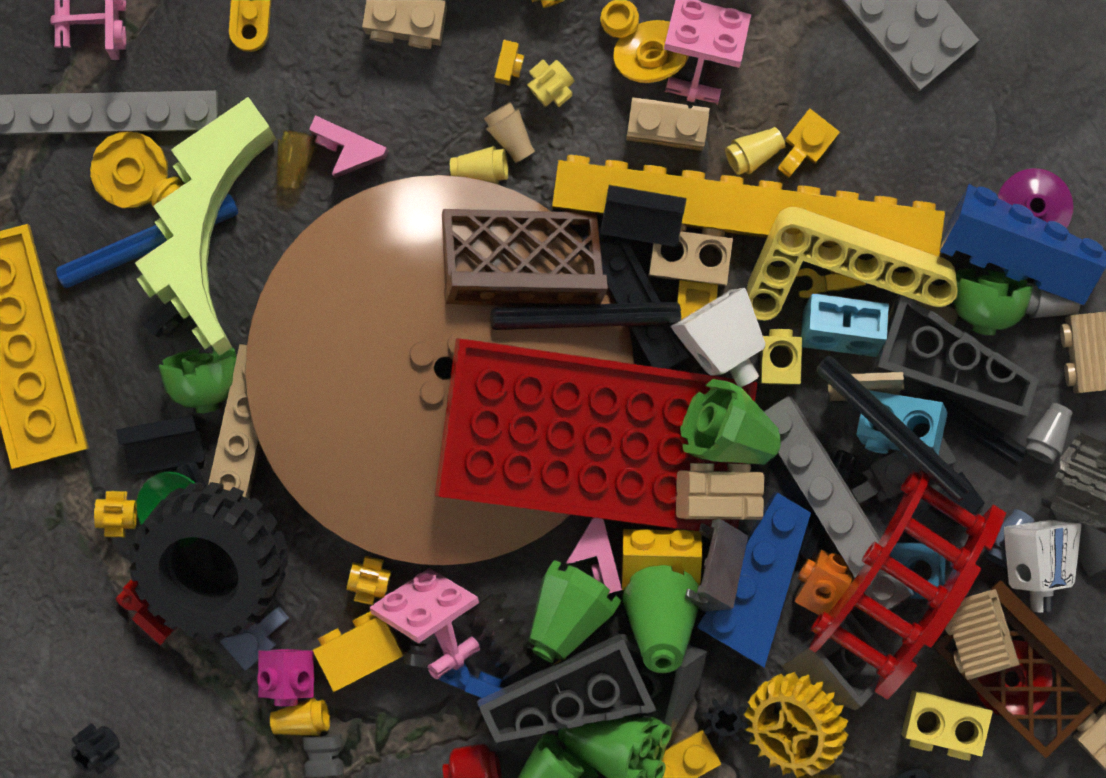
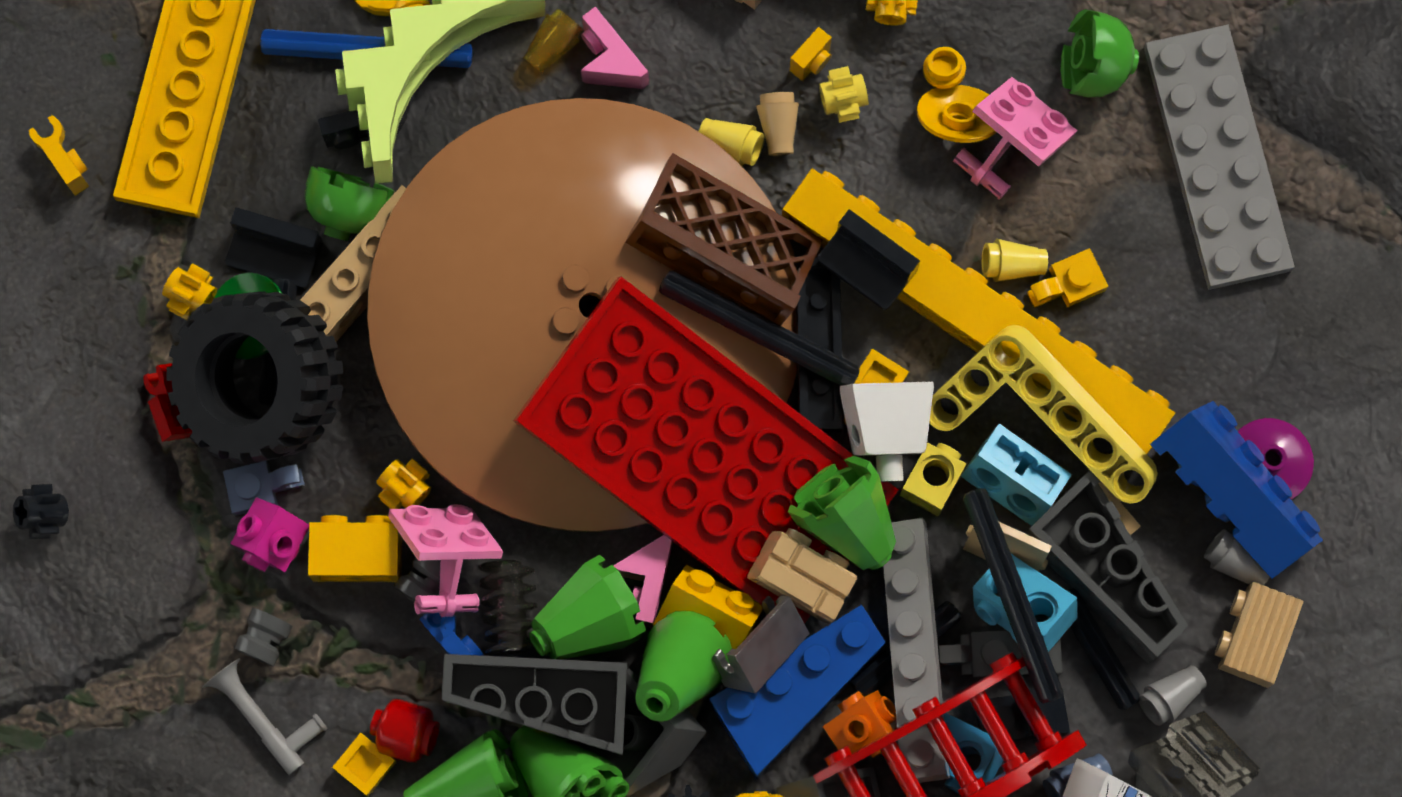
camera: 25 degrees right, 10 degrees down
(306, 719) = (262, 590): yellow cone -> none
(667, 124) = (938, 190): tan brick -> none
(689, 266) = (889, 337): tan brick -> none
(827, 283) = (1030, 429): yellow plate -> none
(990, 300) = (1177, 526): bright green cylinder -> none

